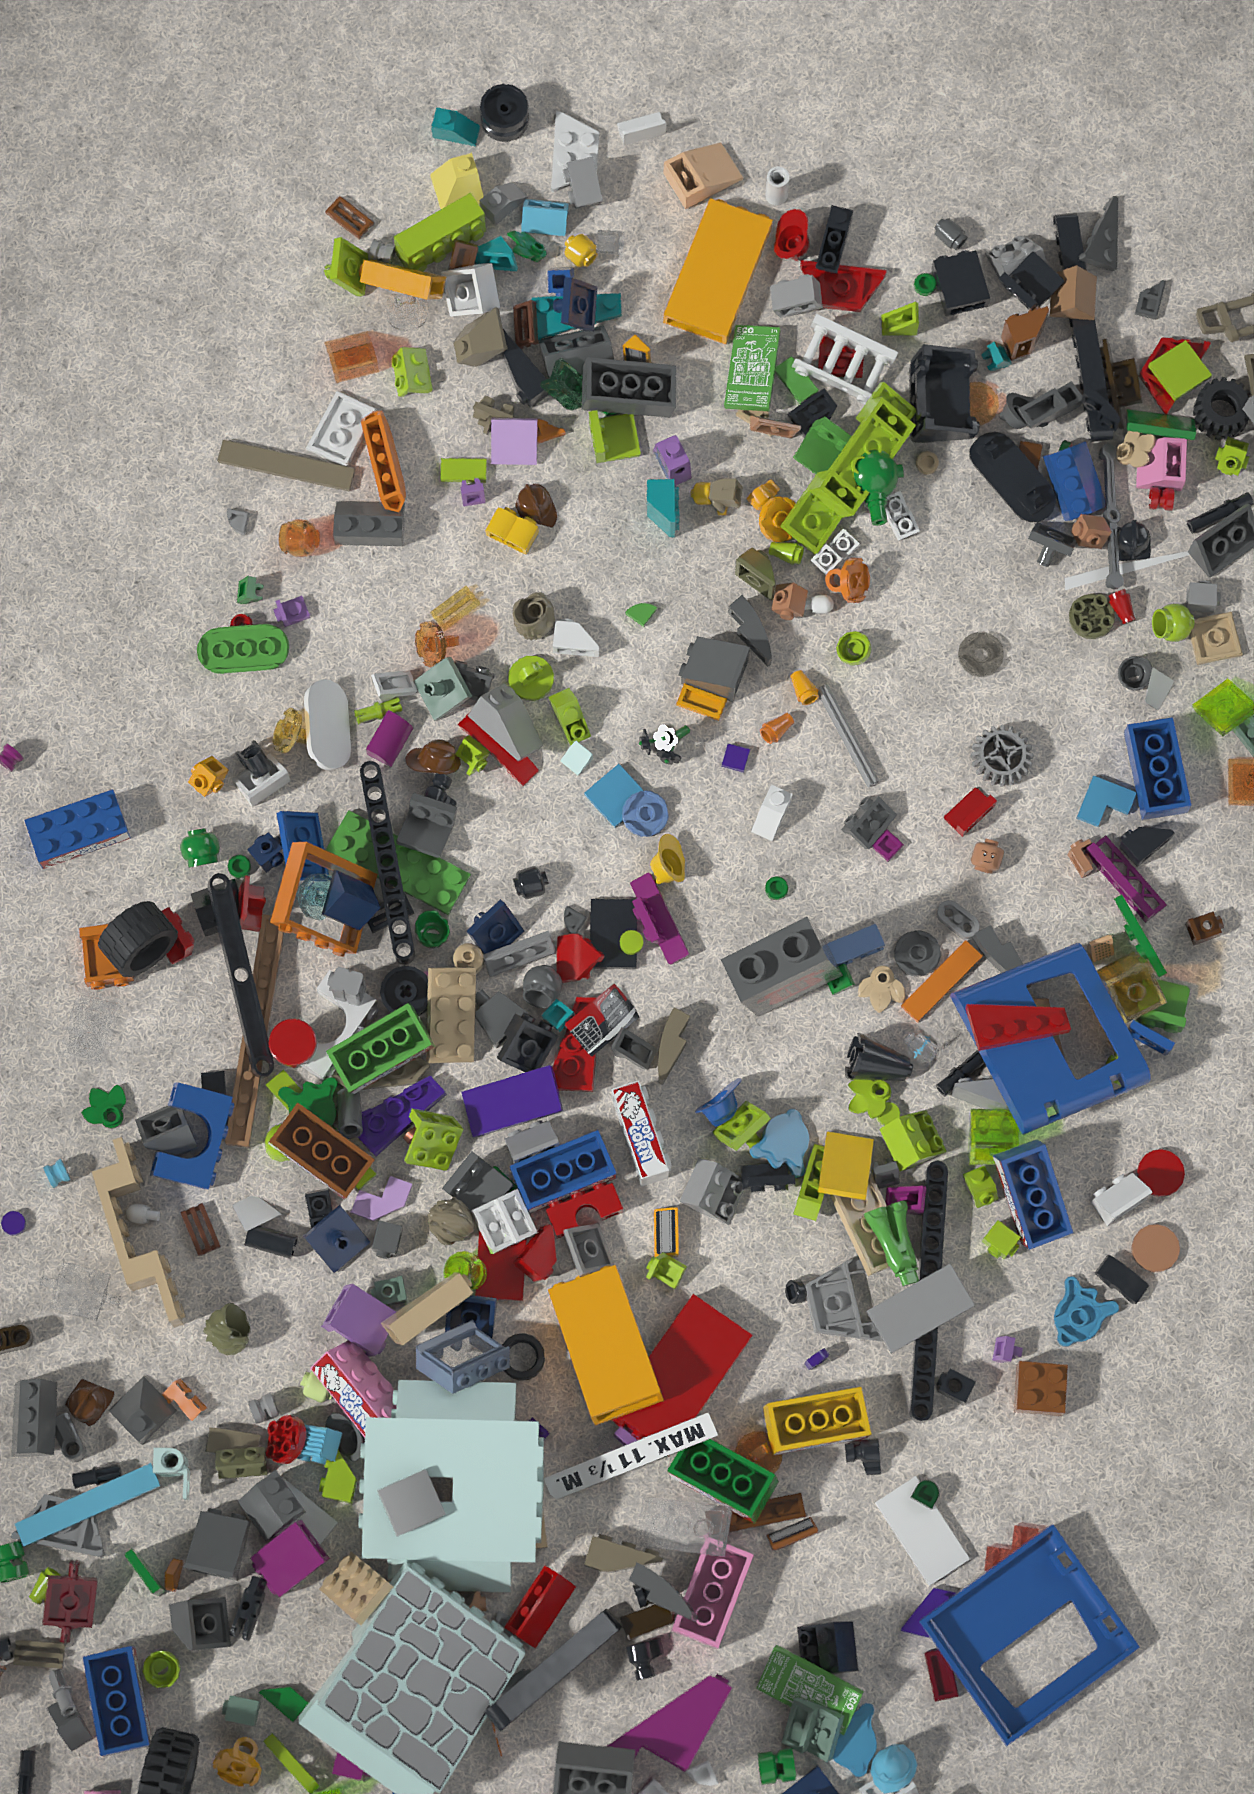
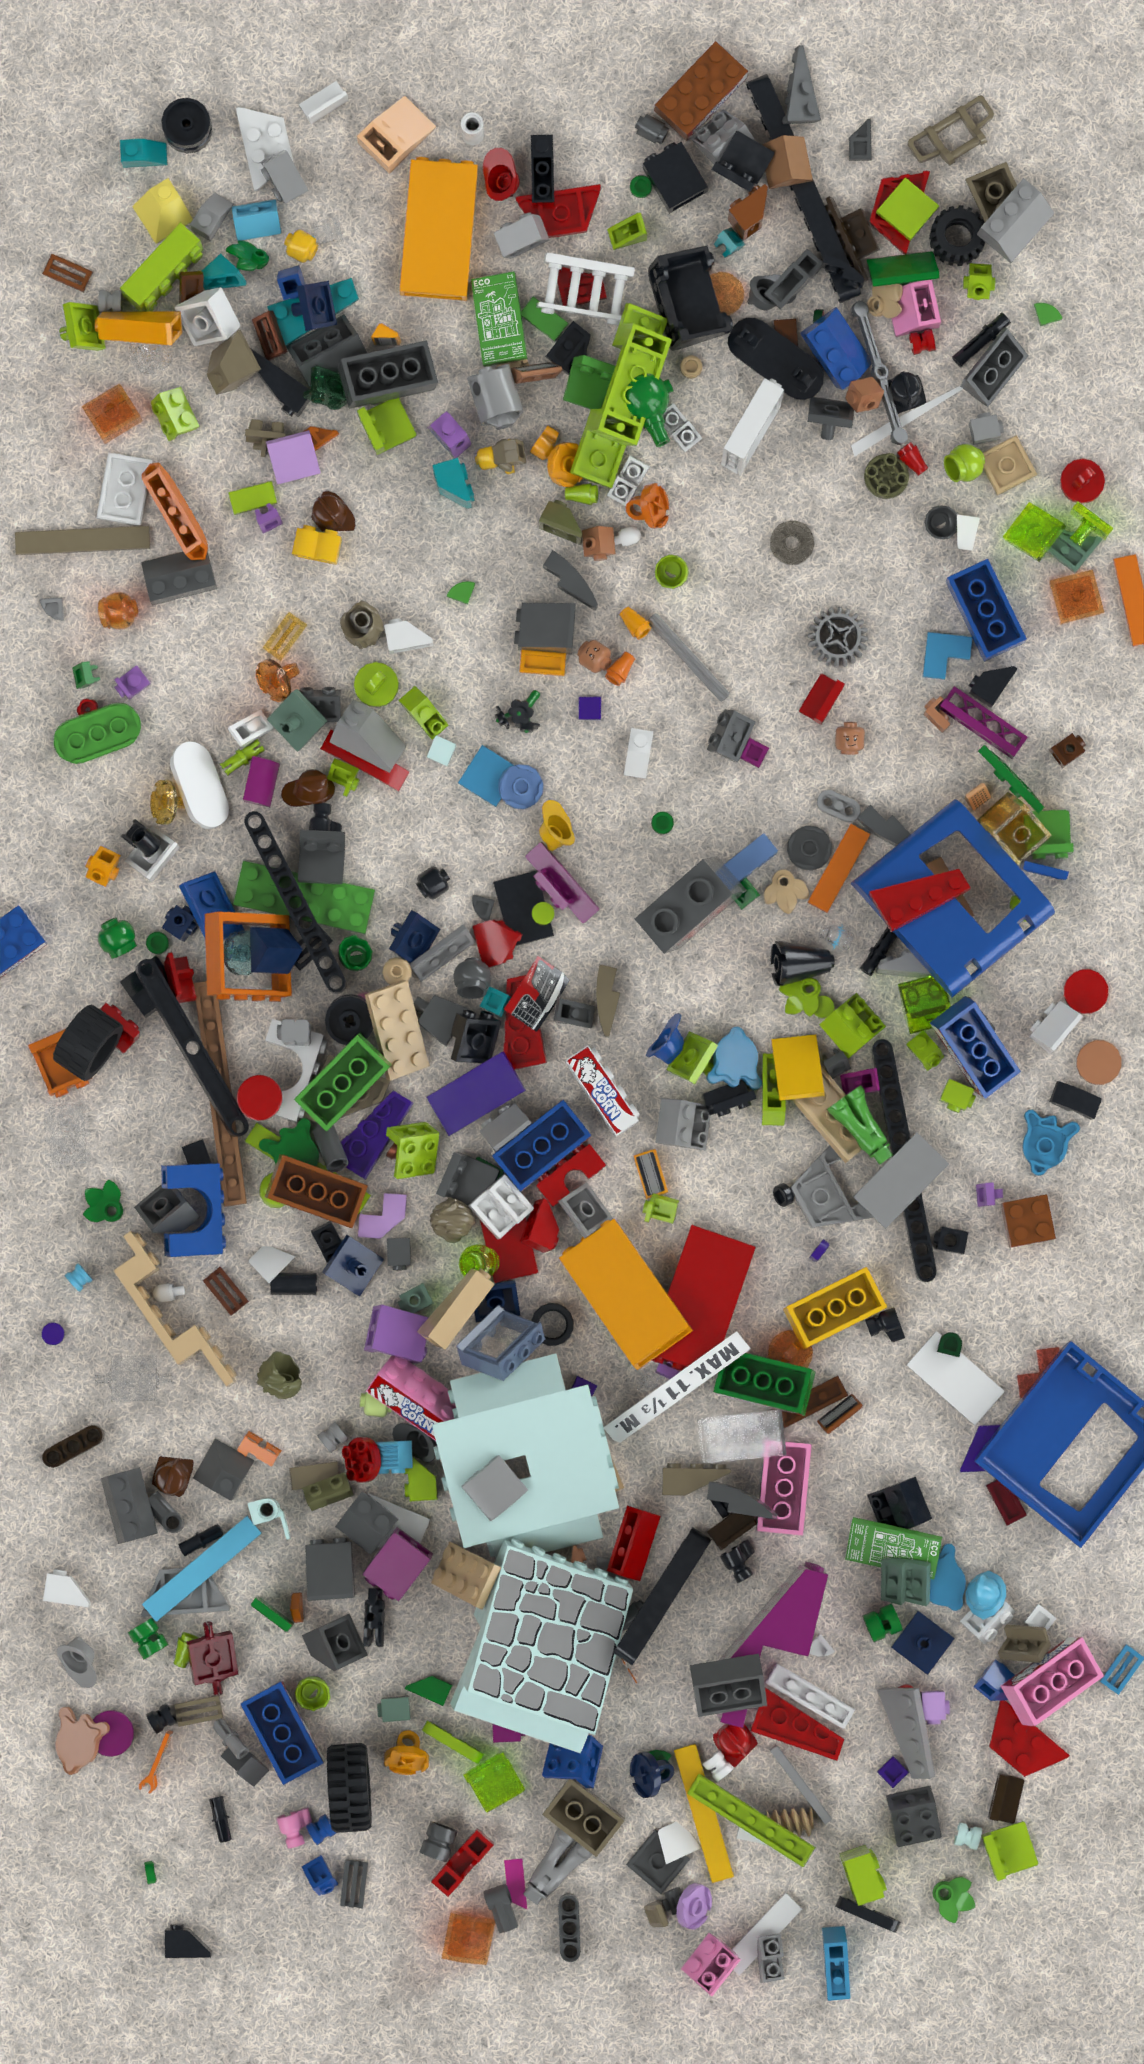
camera: 15 degrees left, 10 degrees up
(728, 436) = (495, 396): none -> light grey cylinder
(754, 708) = (594, 656): none -> nougat head
(972, 527) = (752, 426): none -> white window
(1008, 211) = (701, 91): none -> dark orange brick

